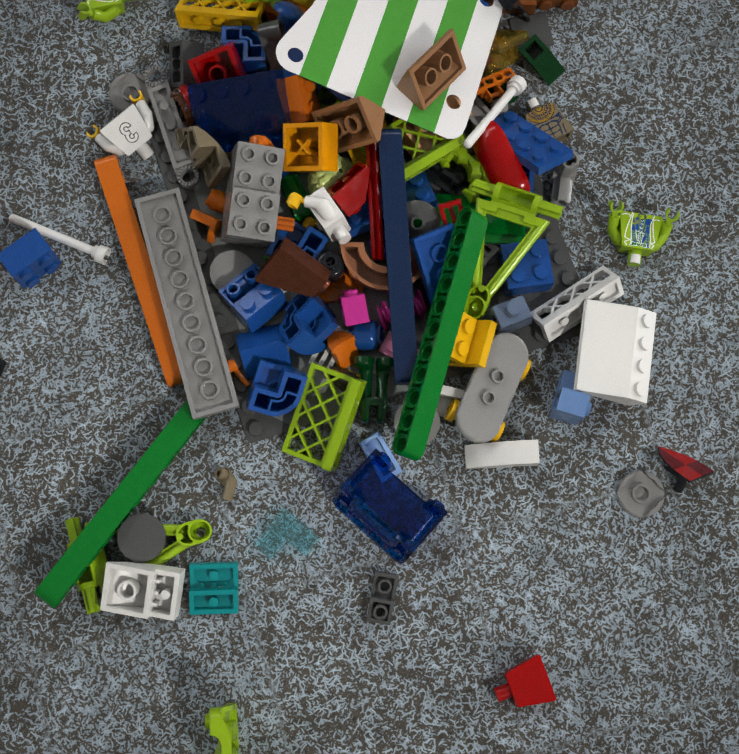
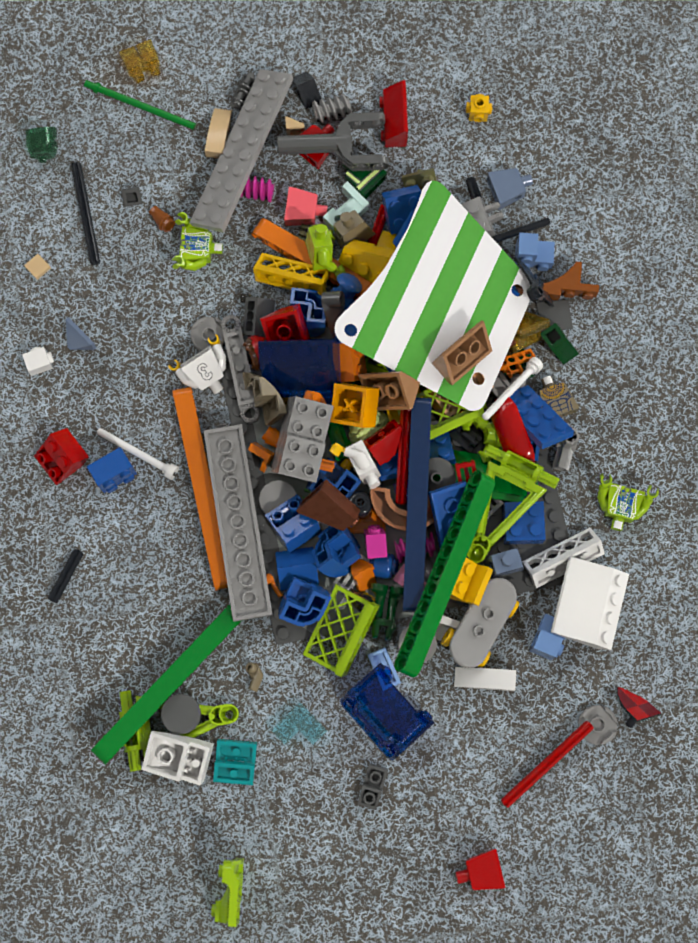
camera: 10 degrees right, 0 degrees up
(587, 546) = (547, 764): none -> red axle

